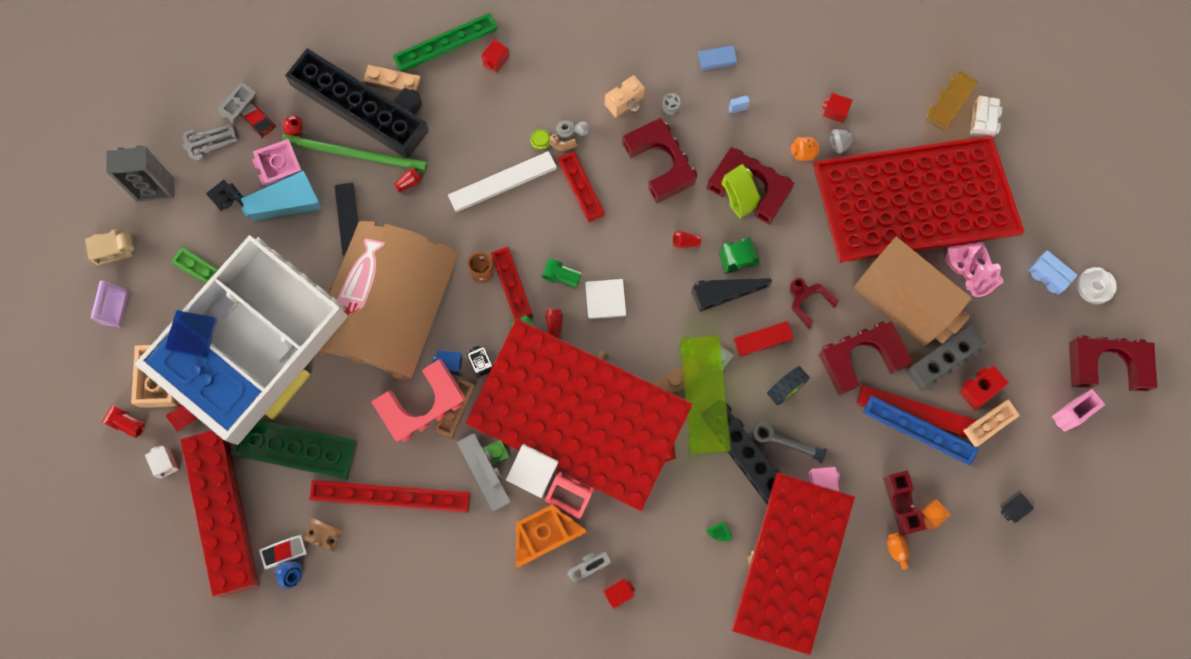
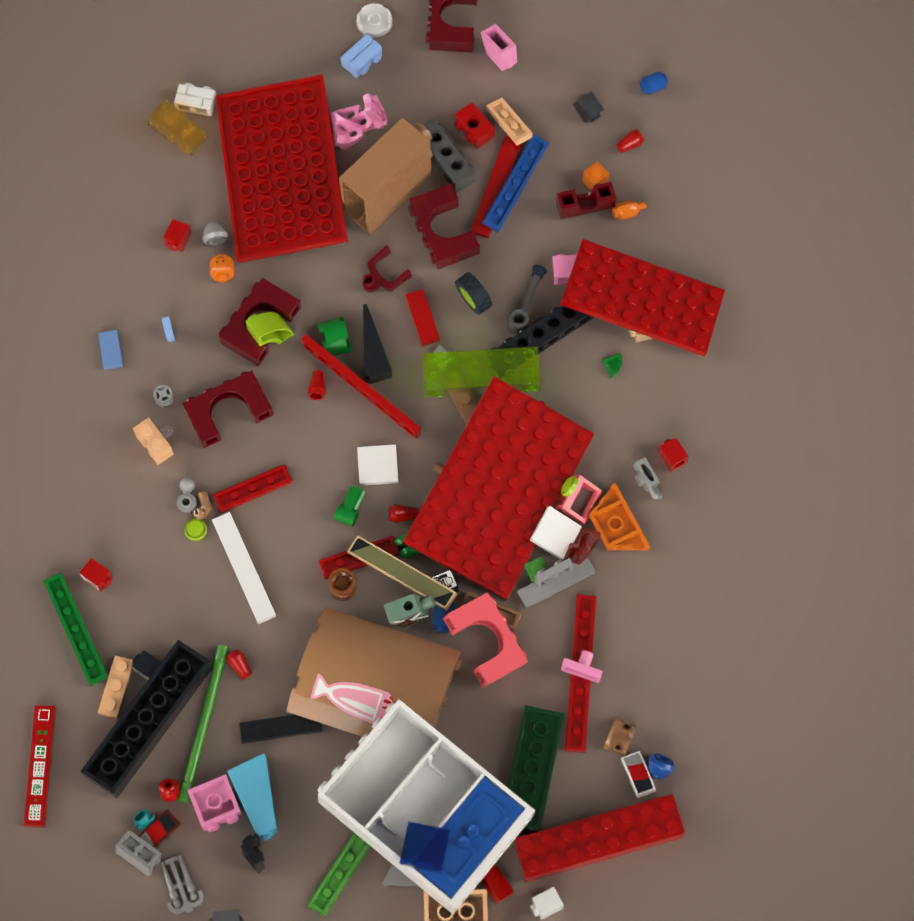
camera: 85 degrees left, 5 degrees down
(268, 106) = (143, 819): none -> teal plate
(323, 22) = (39, 766): none -> red tile
(388, 496) = (582, 667): none -> bright pink tile
(450, 333) = (409, 610): none -> sand green torso
(488, 321) = (401, 572): none -> olive tile
(513, 495) = (583, 547): none -> clear red slope
(579, 483) = (569, 486): none -> lime piece
(685, 281) = (361, 386): none -> red tile
(980, 553) = (630, 141): none -> red cone
(1055, 580) = (653, 83): none -> blue brick

